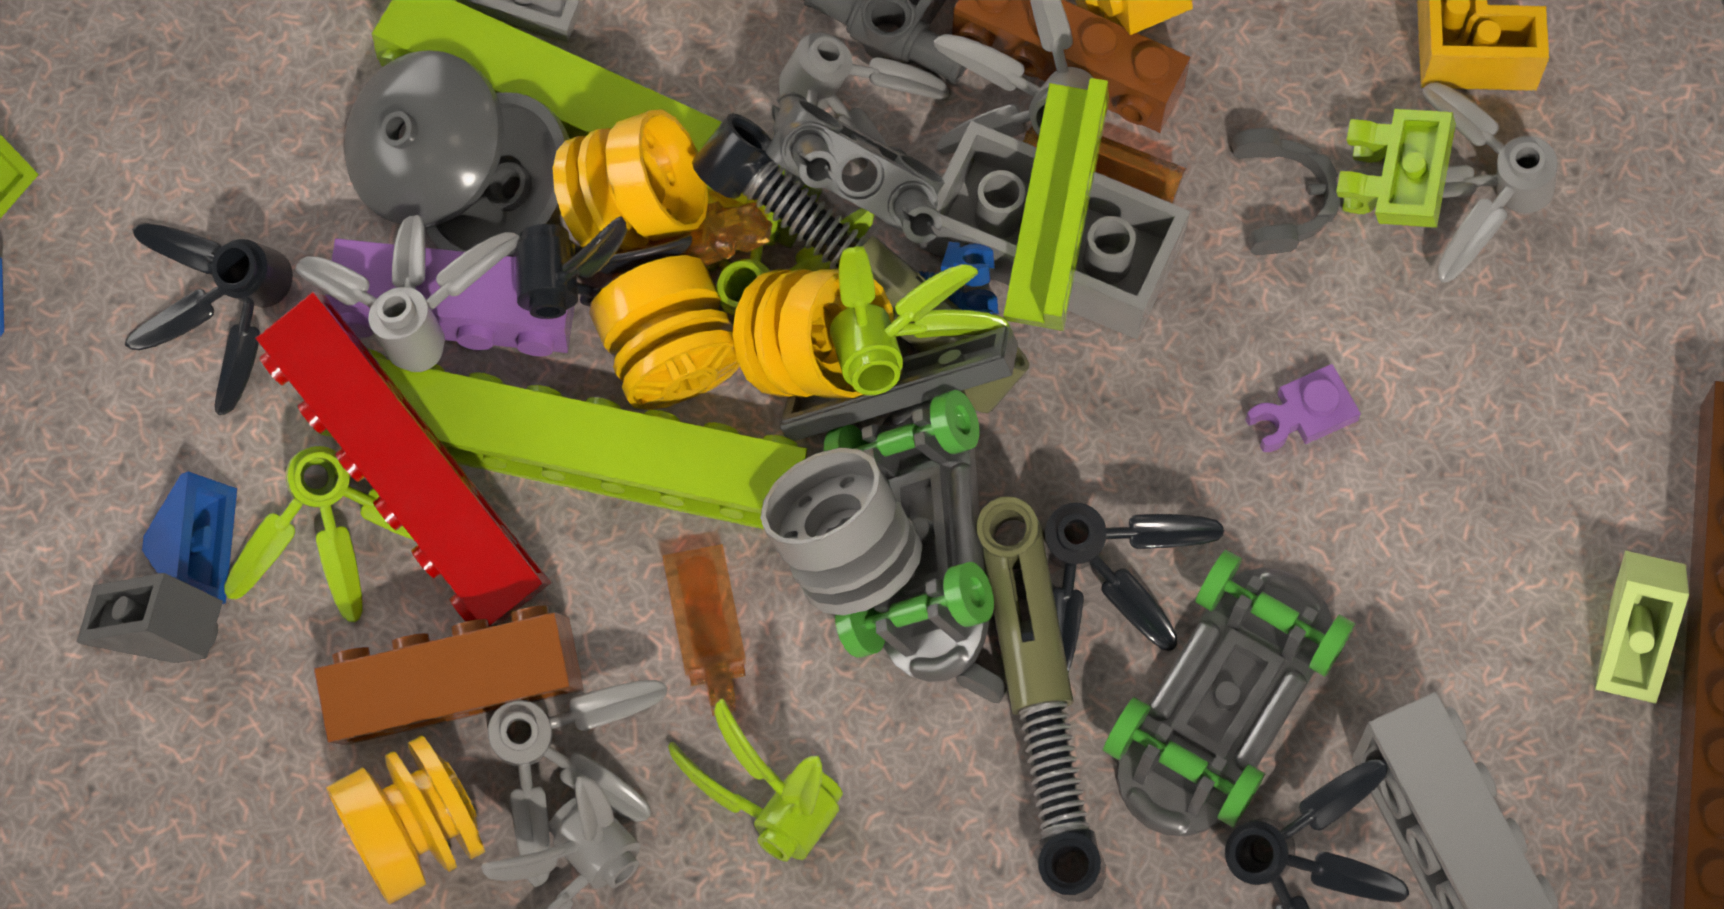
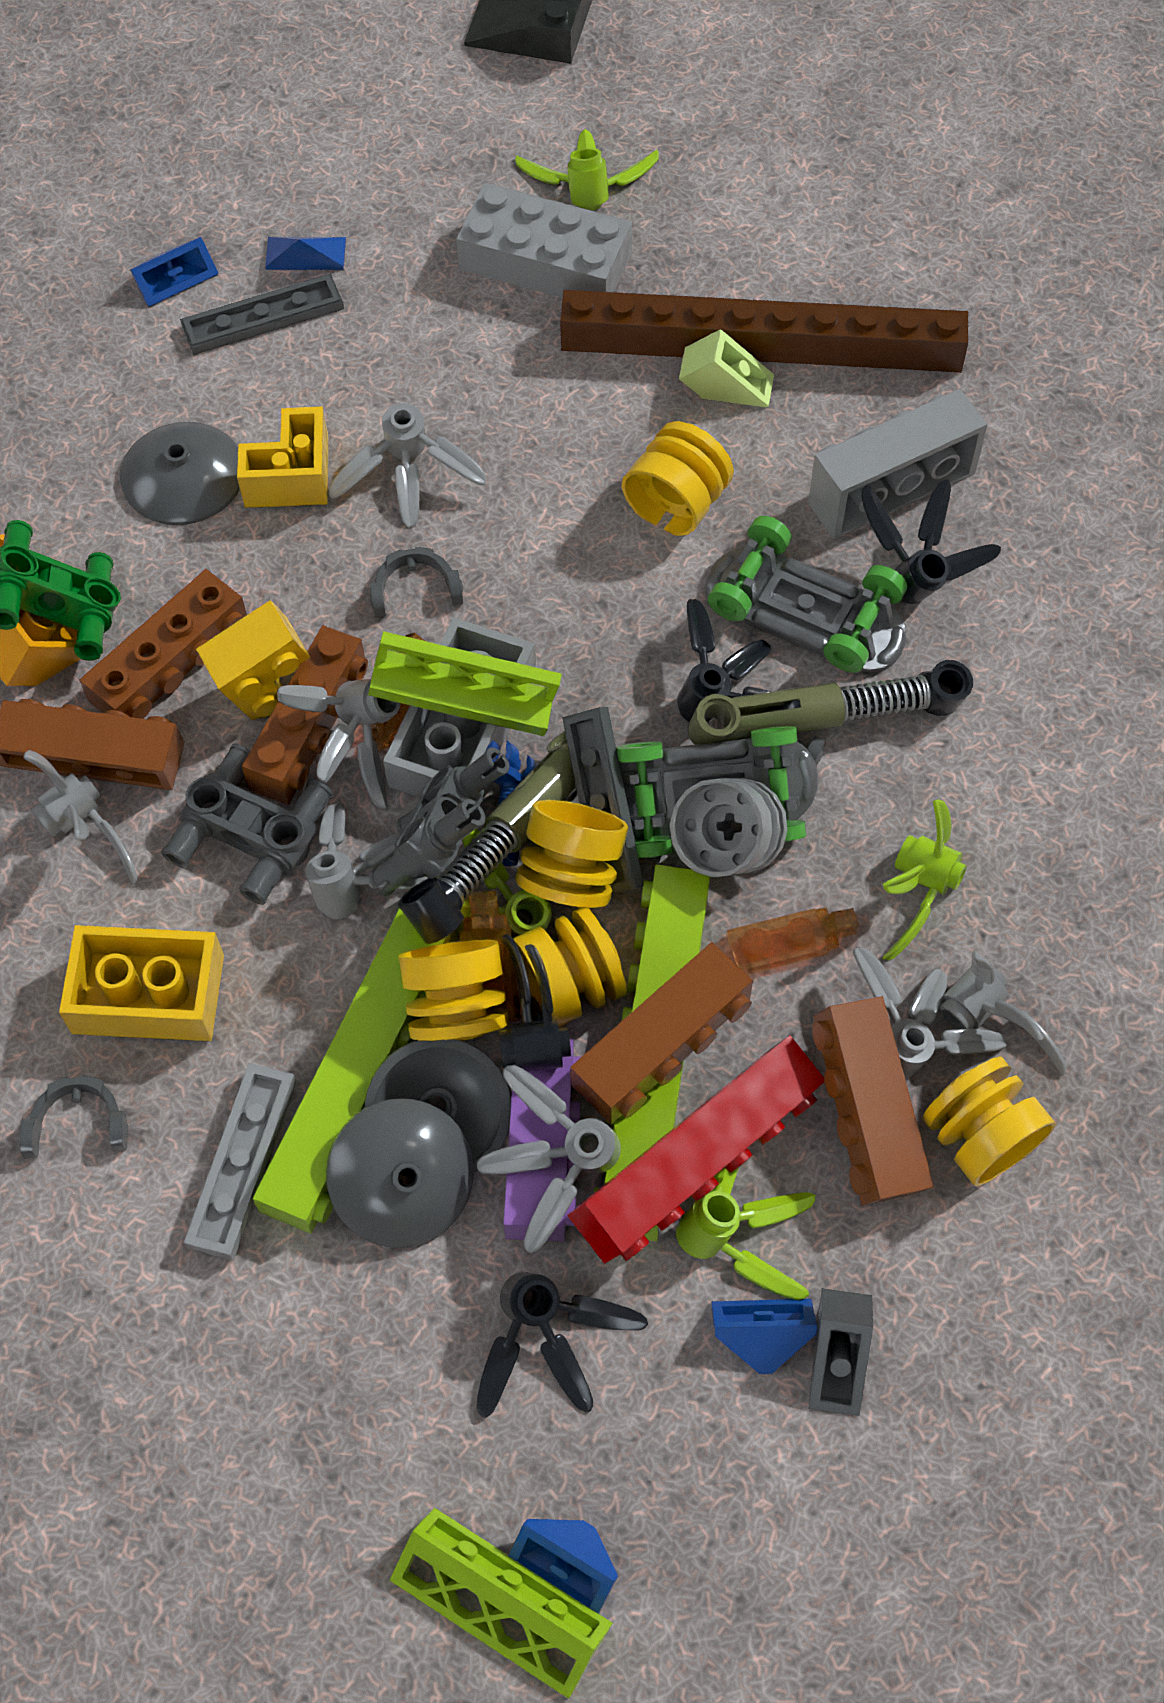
camera: 90 degrees left, 5 degrees down
(547, 420) = (662, 1033): none -> dark orange brick
(866, 336) = (593, 801): lime plant -> none
(1311, 405) = (583, 562): medium lavender plate -> none
(1413, 170) = (402, 495): lime plate -> none
(1431, 526) = (679, 475): none -> yellow wheel

